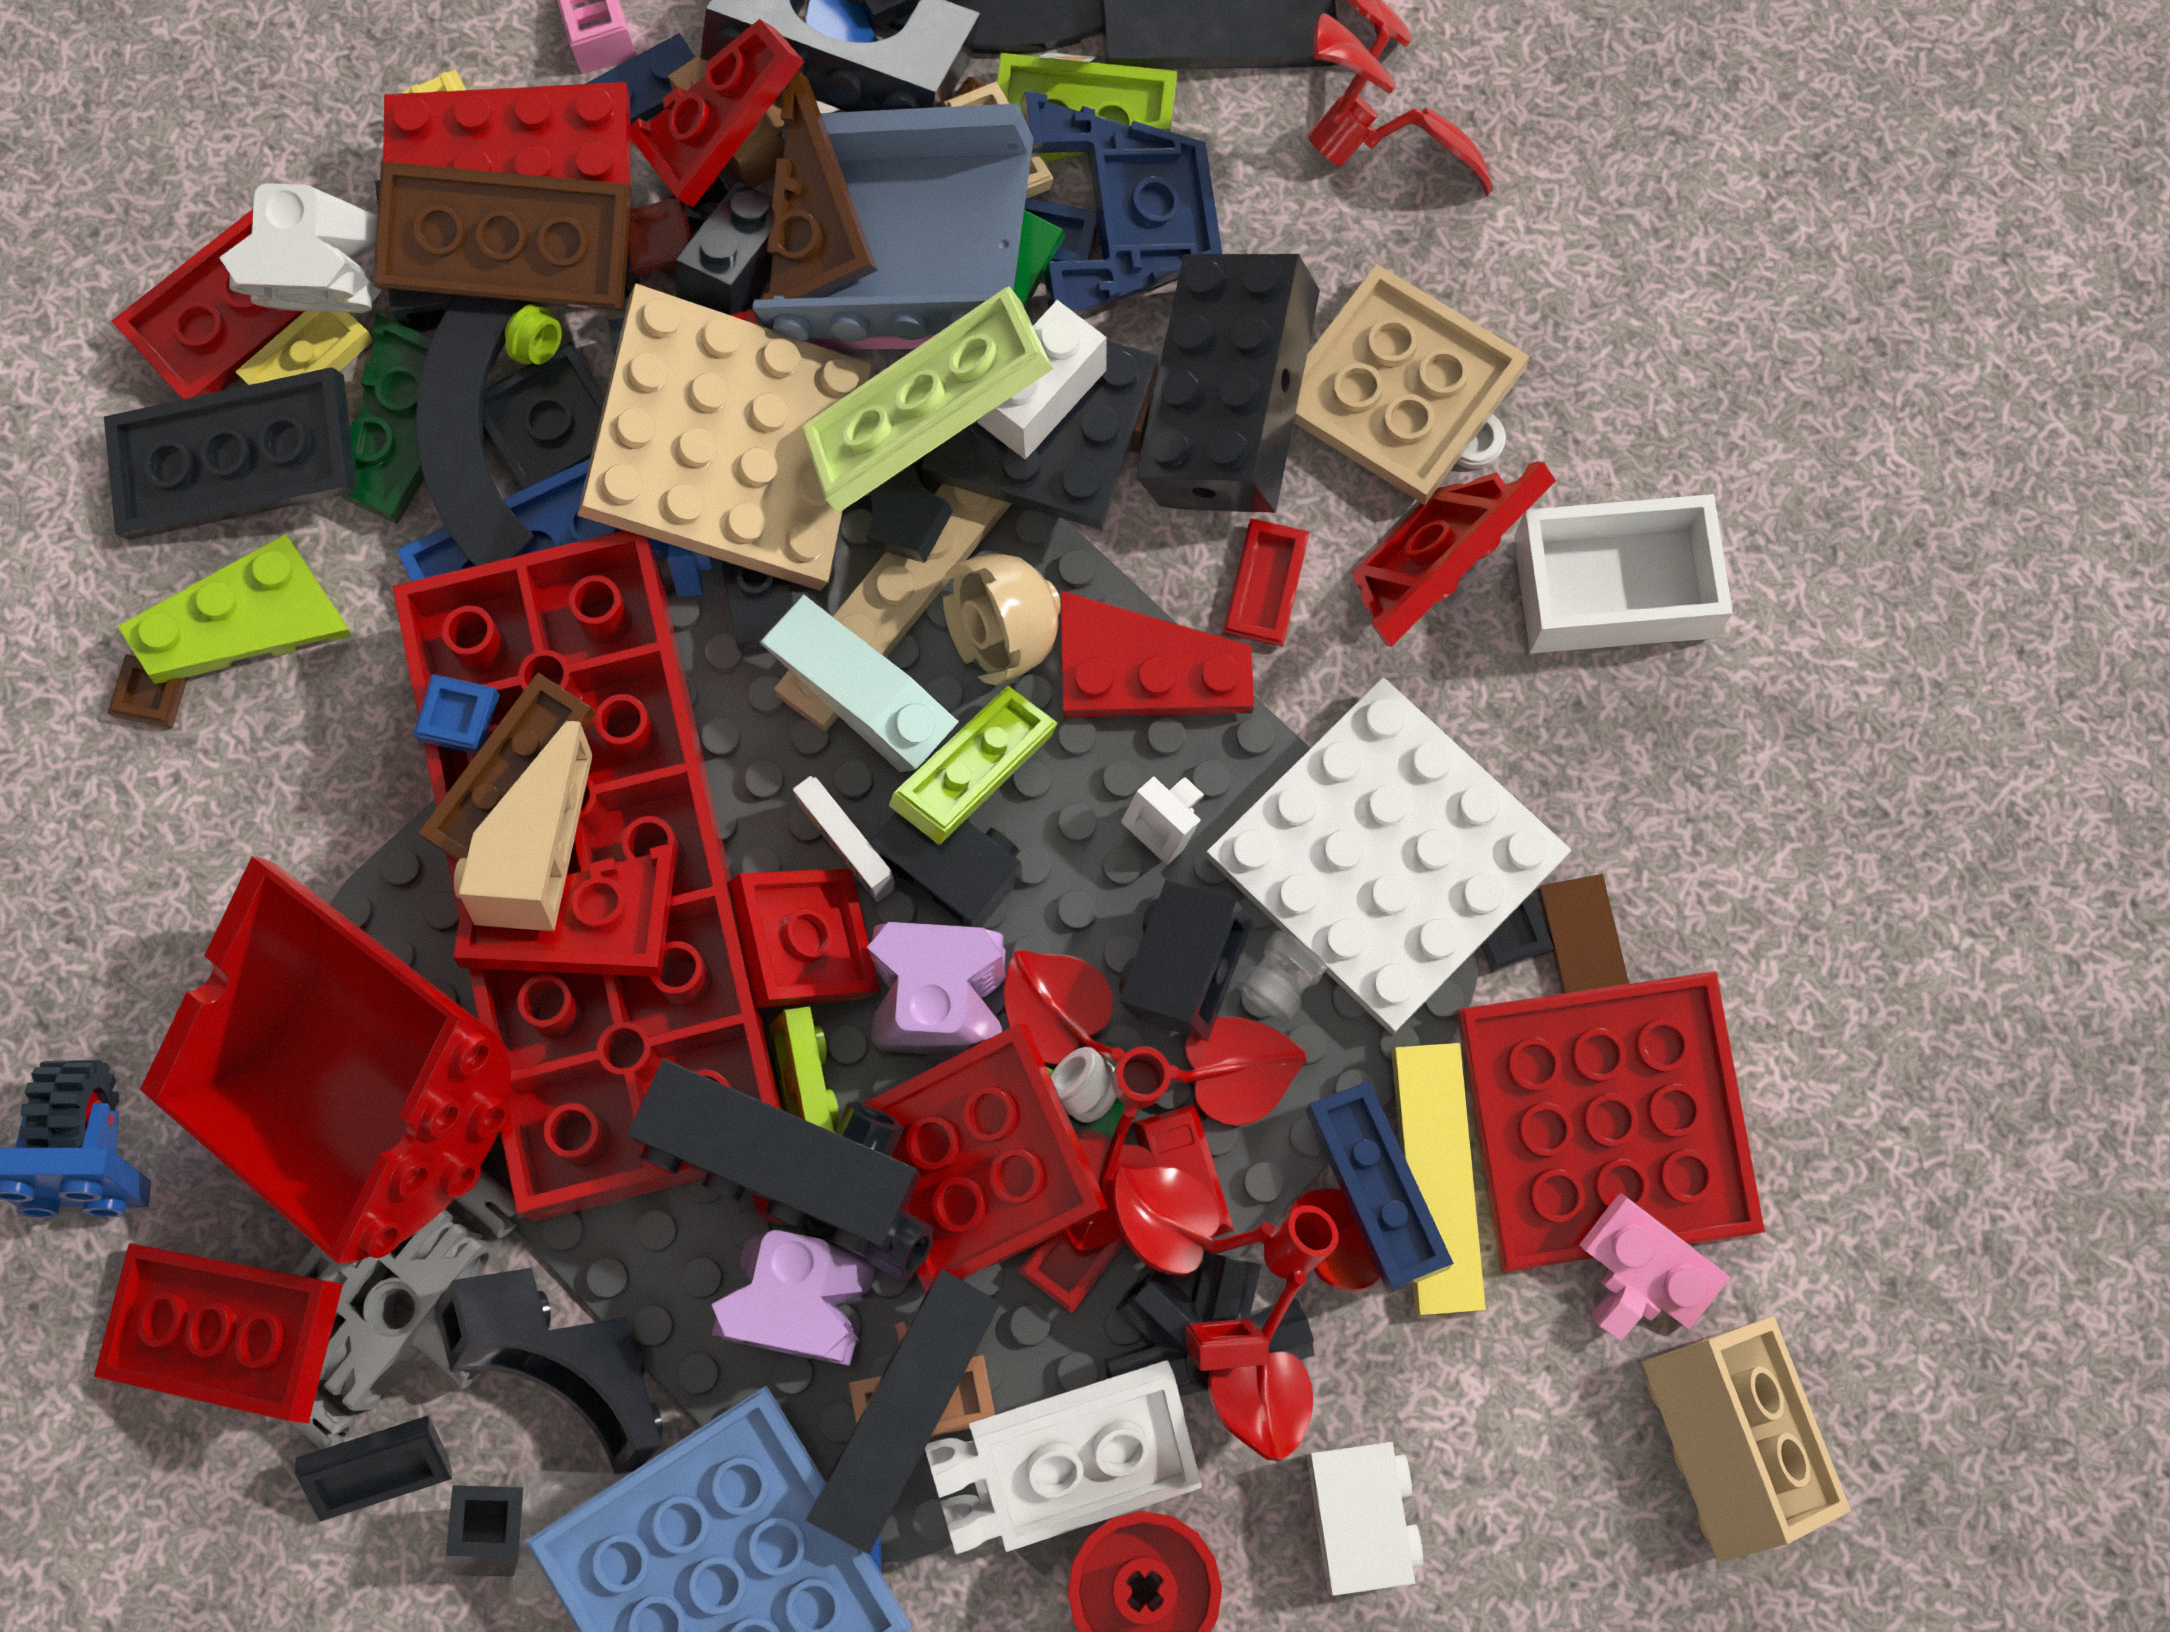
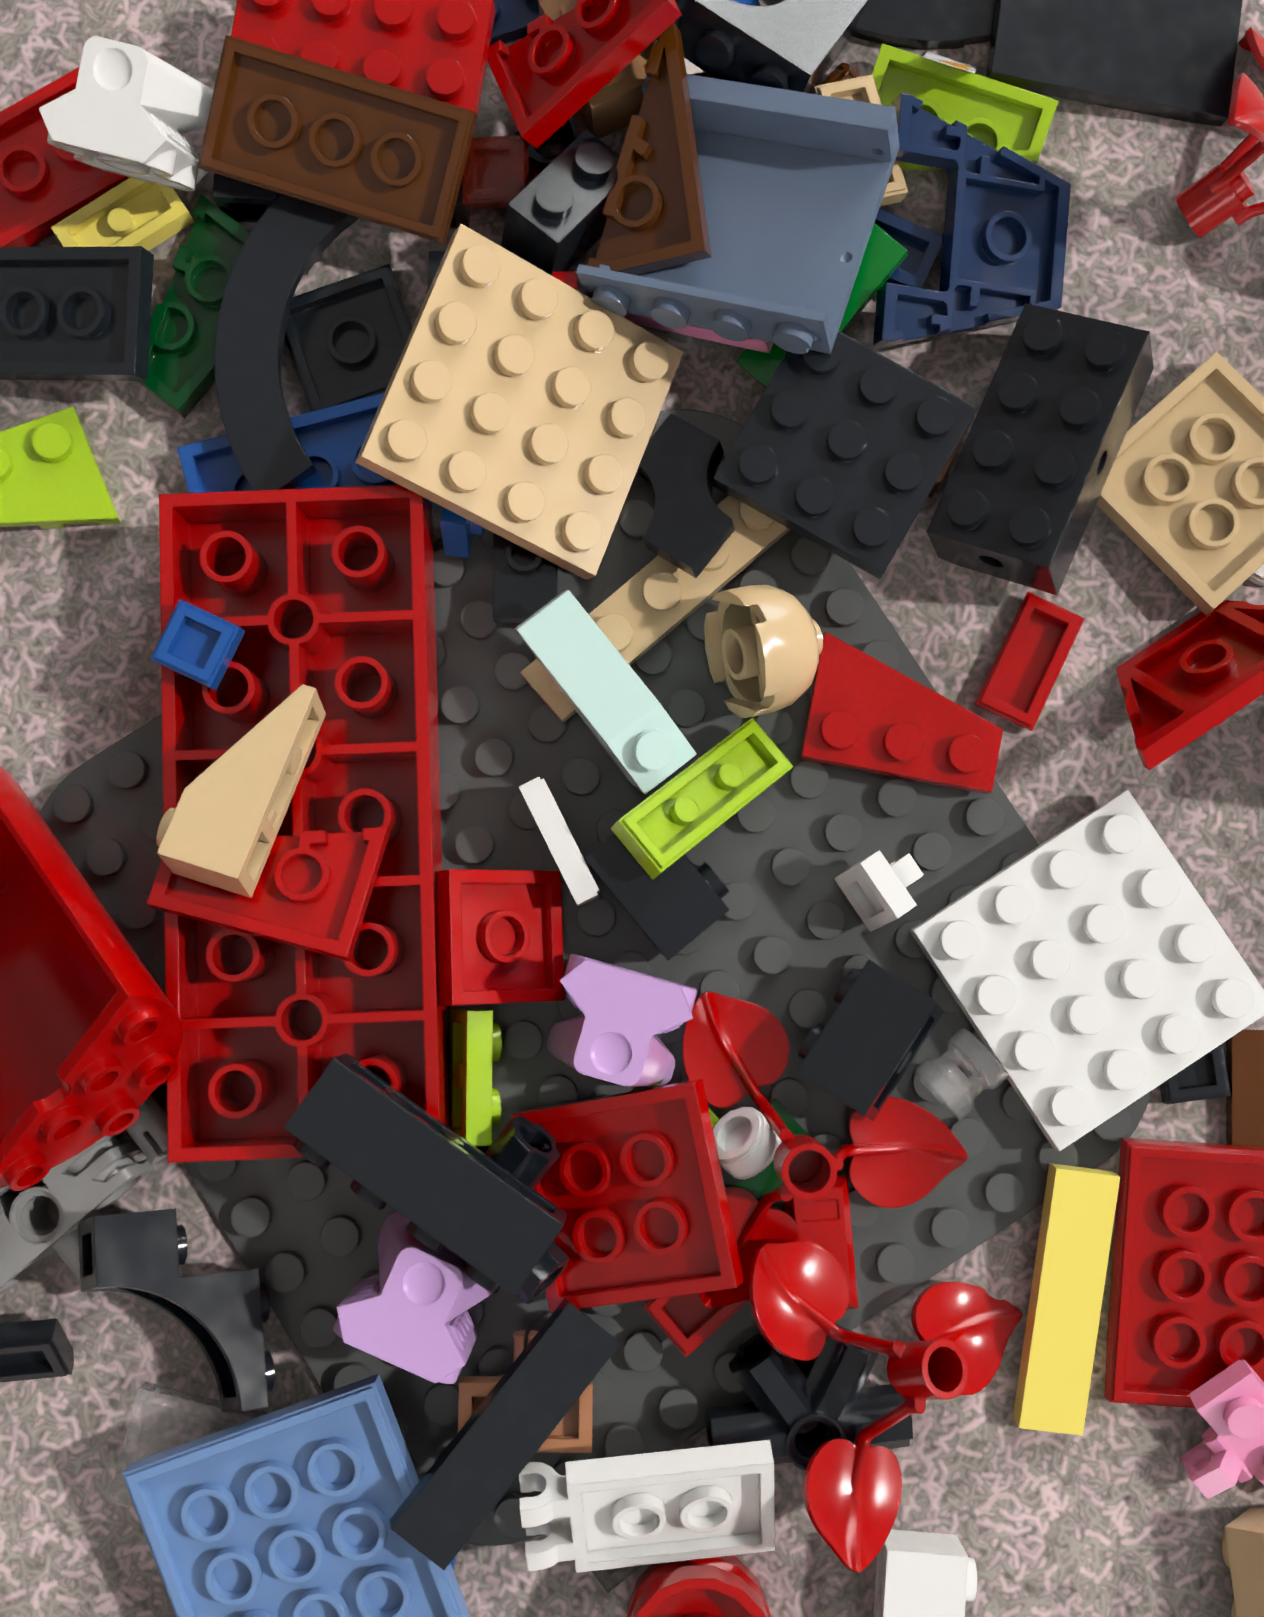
camera: 15 degrees right, 10 degrees up
(483, 1531) = (87, 1444): black brick -> none
(501, 762) = (233, 710): reddish brown plate -> none
(532, 335) = (350, 251): lime plate -> none
(924, 399) = (736, 414): yellowish green tile -> none
(1077, 361) = (857, 414): white brick -> none
(1226, 1344) = (831, 1443): red tile -> none
(1379, 1187) = (1010, 1306): dark blue plate -> none

